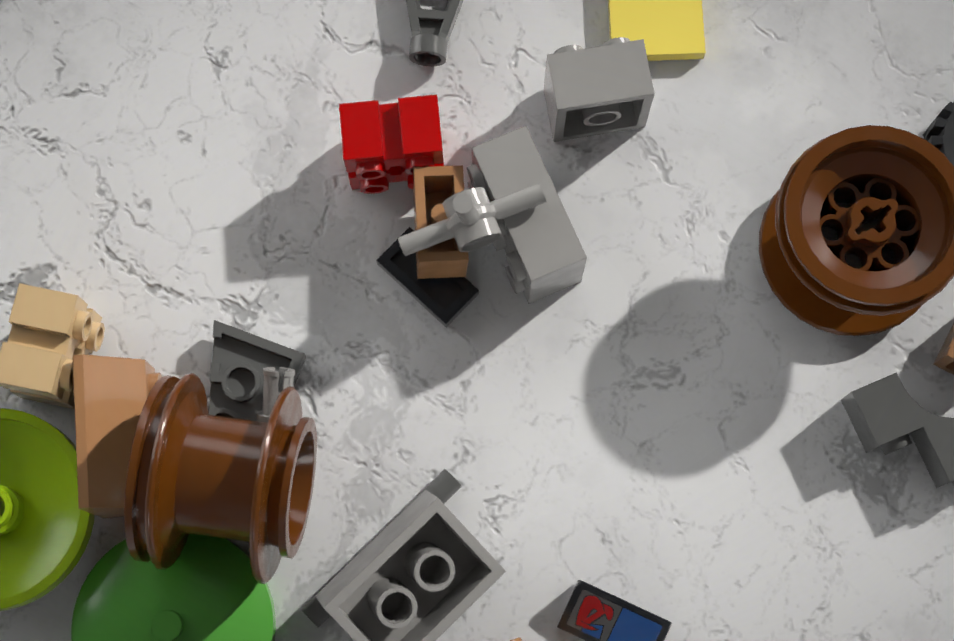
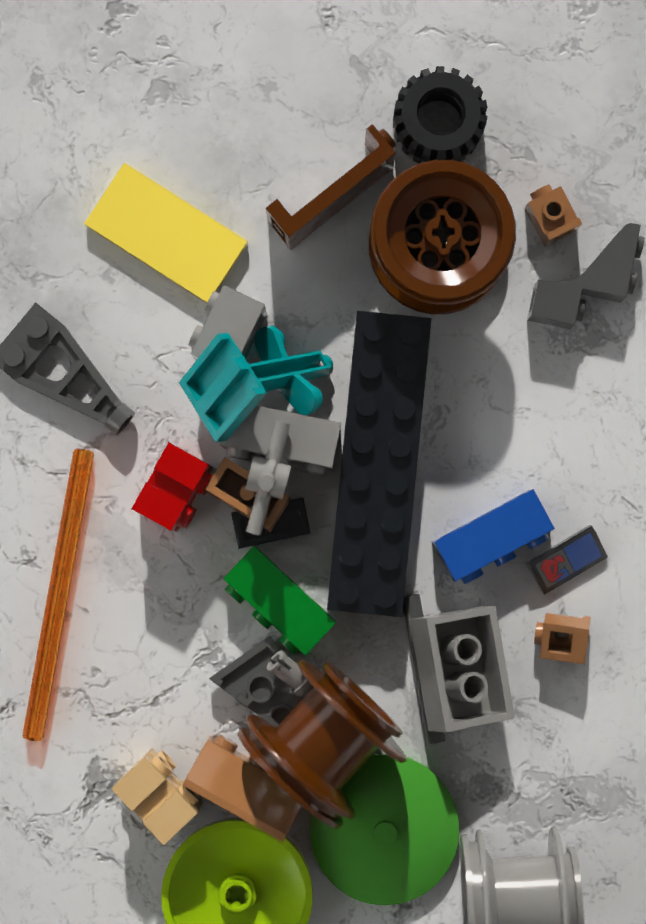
camera: 55 degrees left, 10 degrees up
(199, 112) = (58, 595): none -> clear orange axle
(348, 338) = (278, 601): none -> green brick
(539, 107) = (228, 388): none -> teal piece
(570, 342) = (379, 464): none -> black brick
(581, 522) = (494, 537): none -> blue brick
(818, 99) = (338, 195): none -> reddish brown panel

